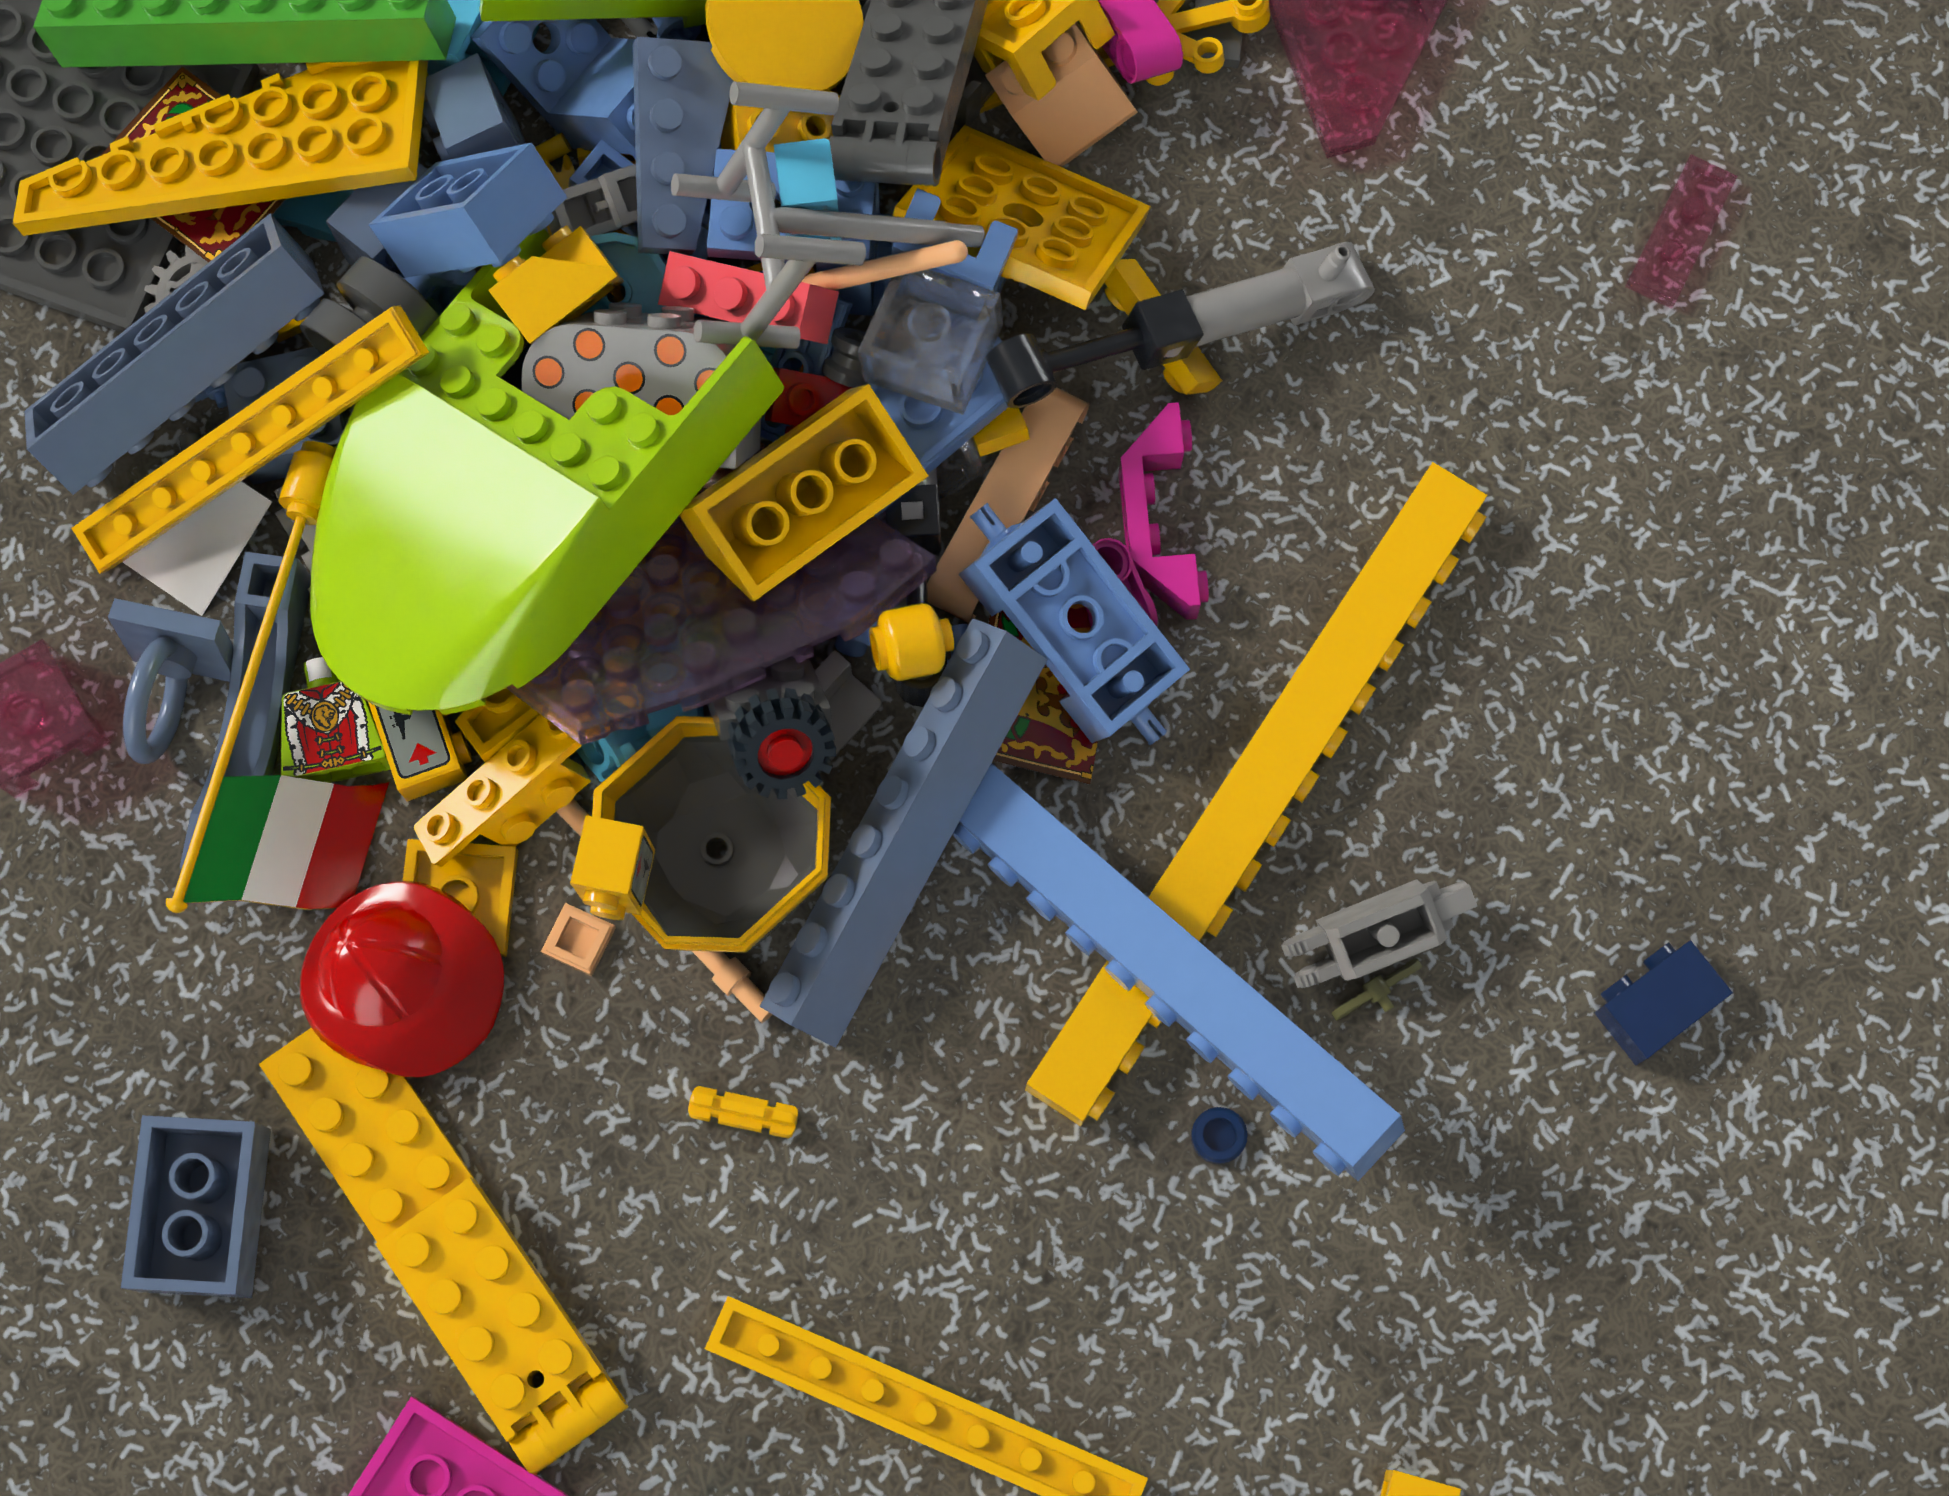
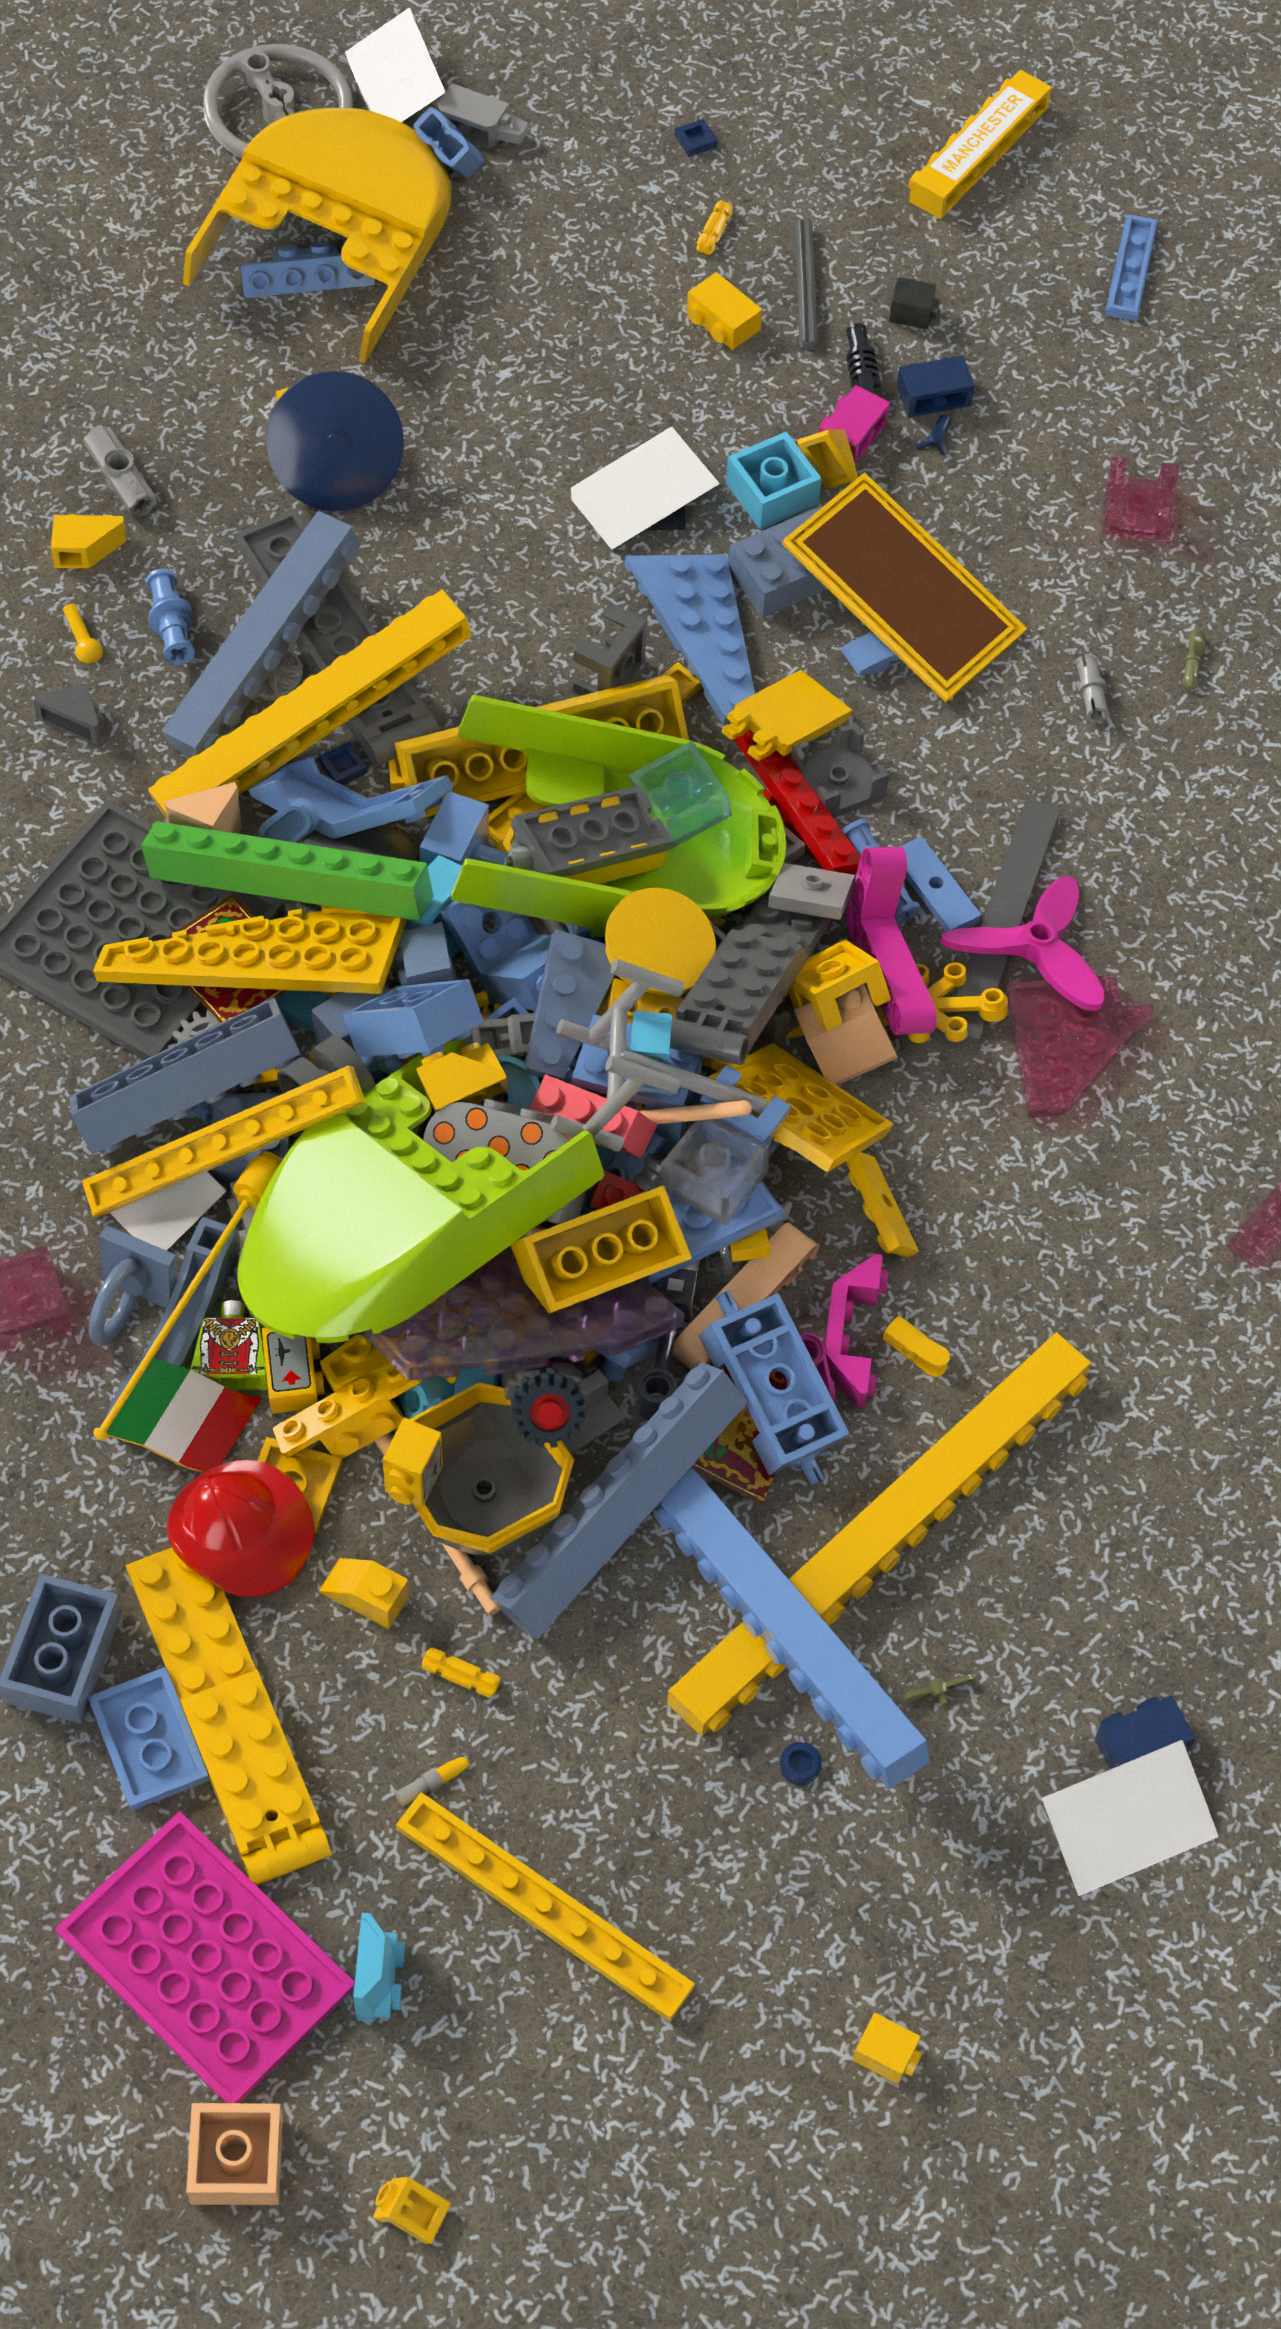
camera: 10 degrees right, 15 degrees down
(344, 1302) = (148, 1739): none -> medium blue plate
(578, 939) = (370, 1531): light nougat tile -> none
(590, 1026) = (367, 1589): none -> yellow slope
(738, 1270) = (431, 1780): none -> light grey piece
(910, 642) = (654, 1366): yellow head -> none
(1175, 324) = (886, 1200): piece -> none
(1249, 518) = (917, 1347): none -> yellow bar
(1380, 930) = (949, 1642): light grey hinge -> none
(1666, 1117) = (1130, 1817): none -> white sticker

